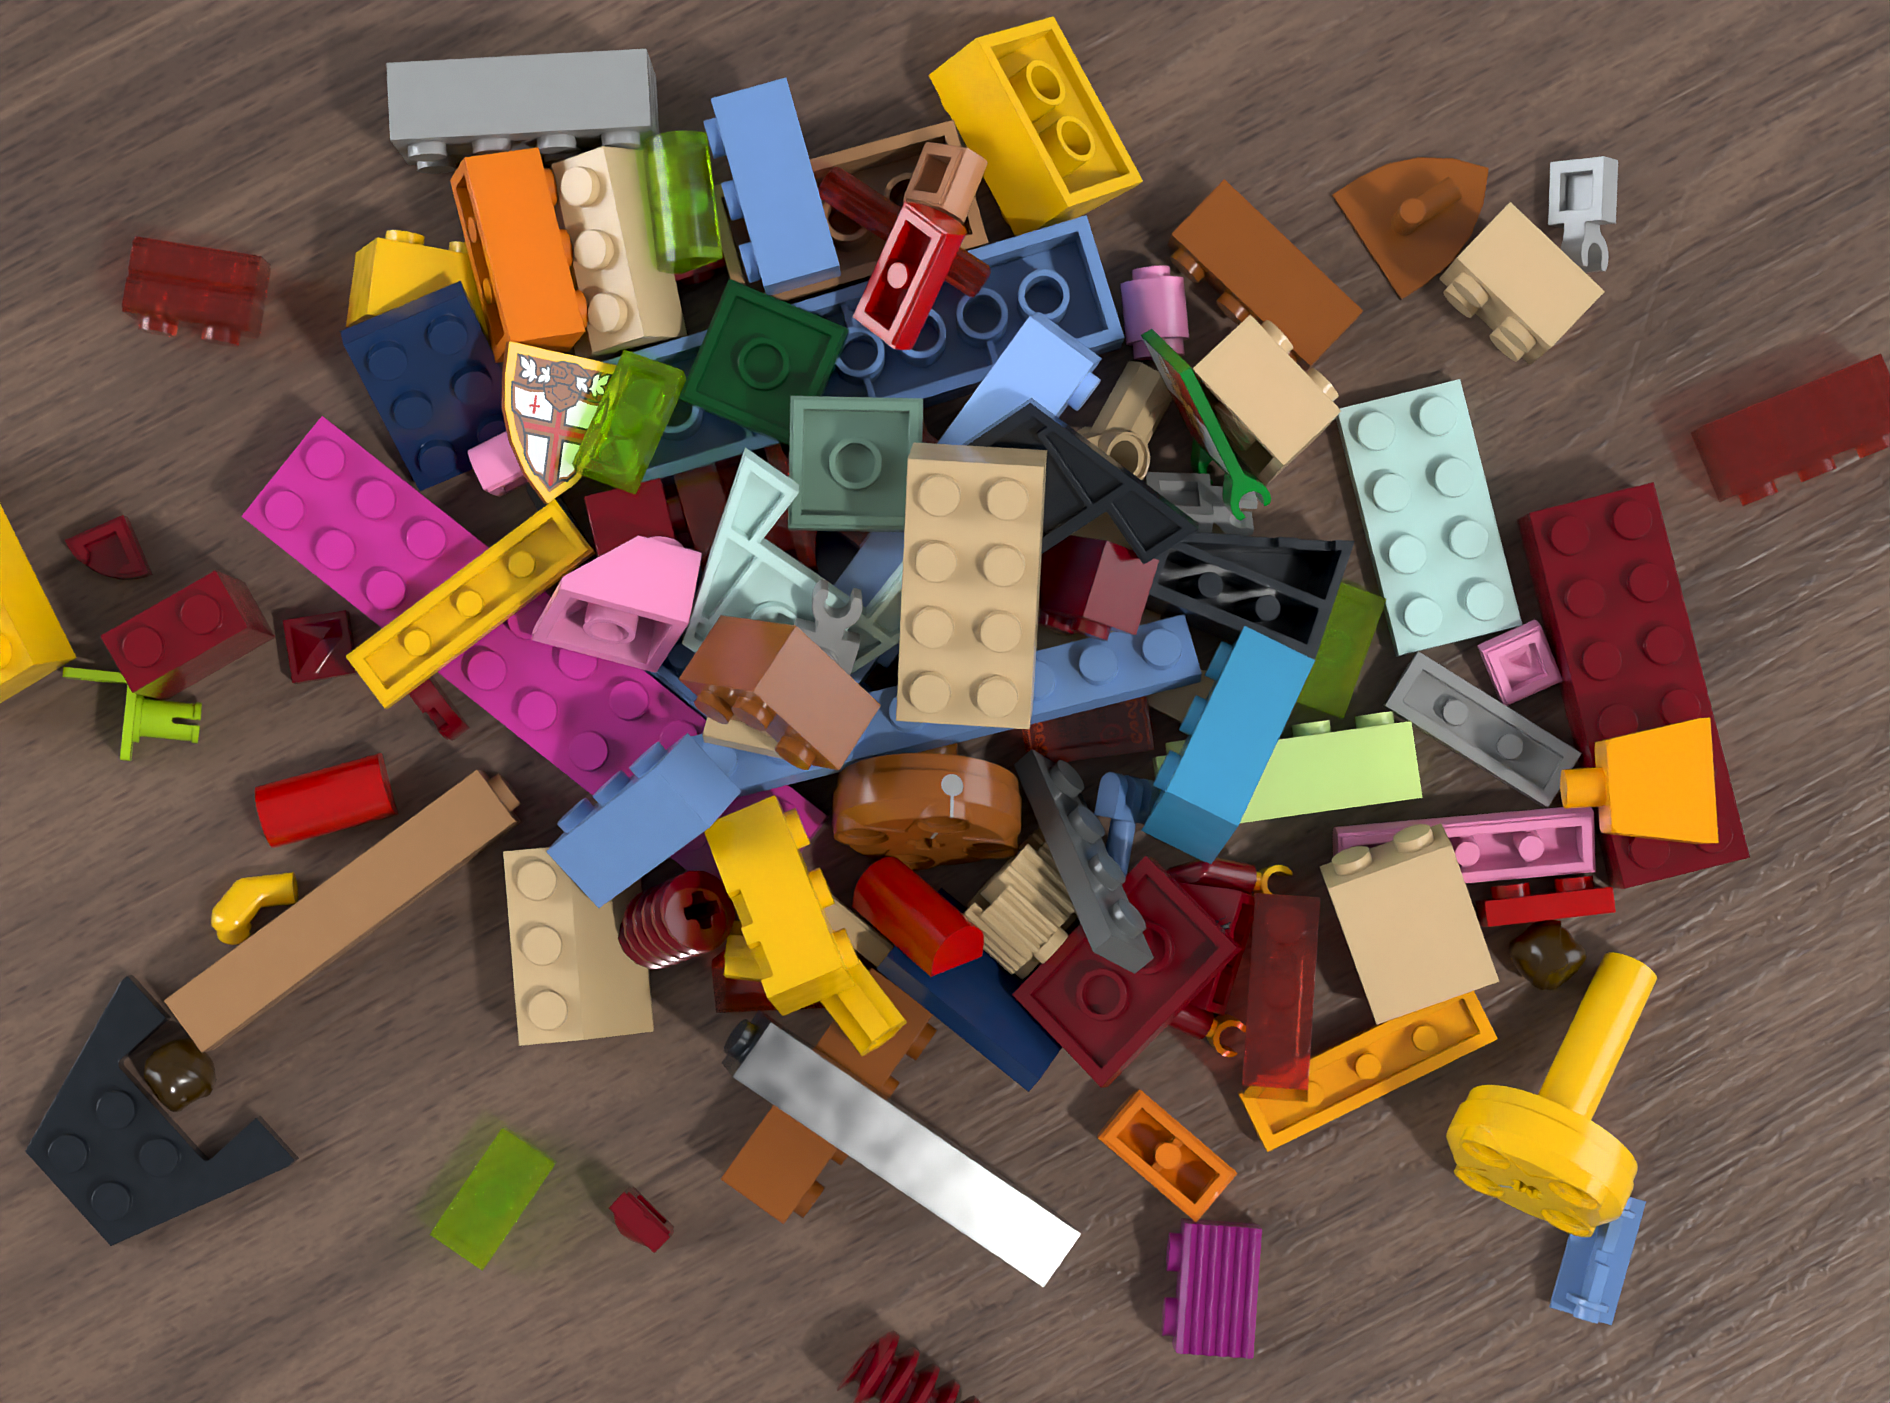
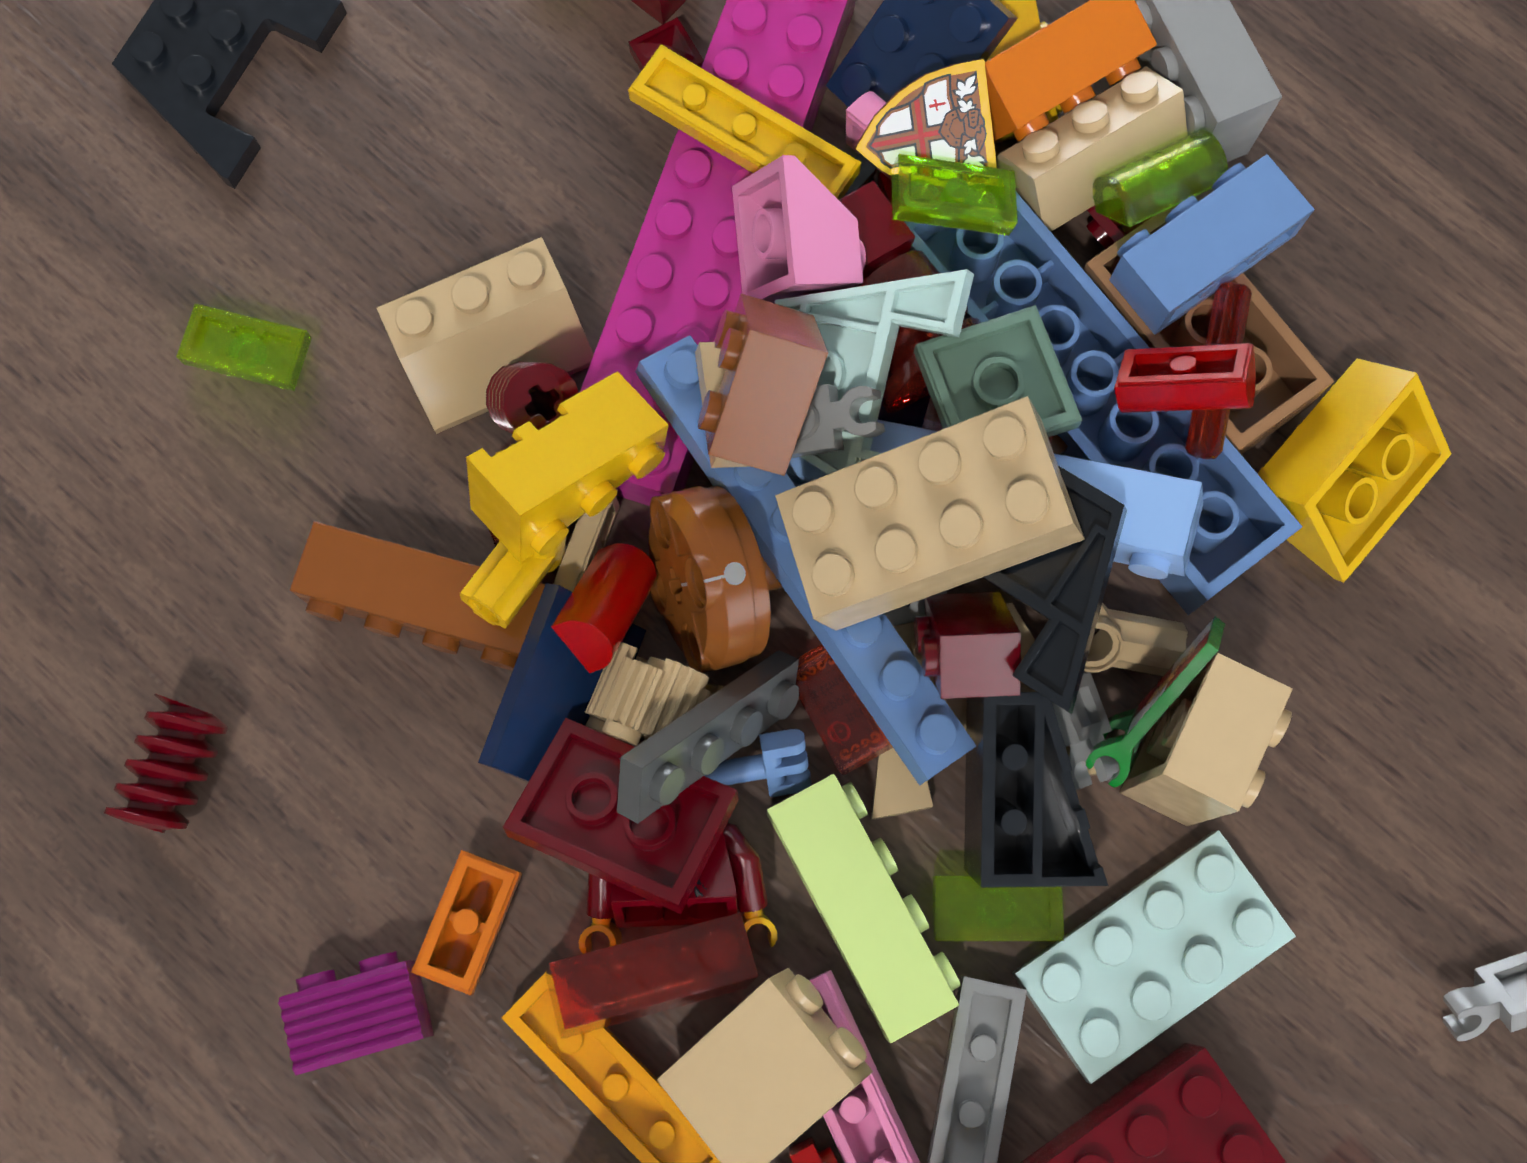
camera: 75 degrees right, 10 degrees down
(180, 1074) = (271, 65): dark brown piece -> none
(245, 898) = (419, 63): yellow arm -> none
(325, 801) = (538, 100): red brick -> none
(345, 909) = (453, 143): medium nougat brick -> none
(435, 702) = (659, 140): dark red tile -> none
(640, 1220) = (262, 473): dark red tile -> none
(641, 818) = (609, 322): medium blue brick -> none
(759, 358) = (1066, 281): dark green tile -> none
(898, 1146) = (388, 665): brick -> none
(946, 179) = (1286, 388): nougat brick -> none
(1156, 303) = (1249, 626): bright pink brick -> none
(1226, 744) = (872, 827): dark azure wedge -> none
(1261, 274) = (1330, 682): dark orange brick -> none
(1415, 215) = (1423, 840): dark orange shield -> none
(1519, 286) = (1416, 957): tan brick -> none
(1520, 662) = (1054, 1095): bright pink tile -> none

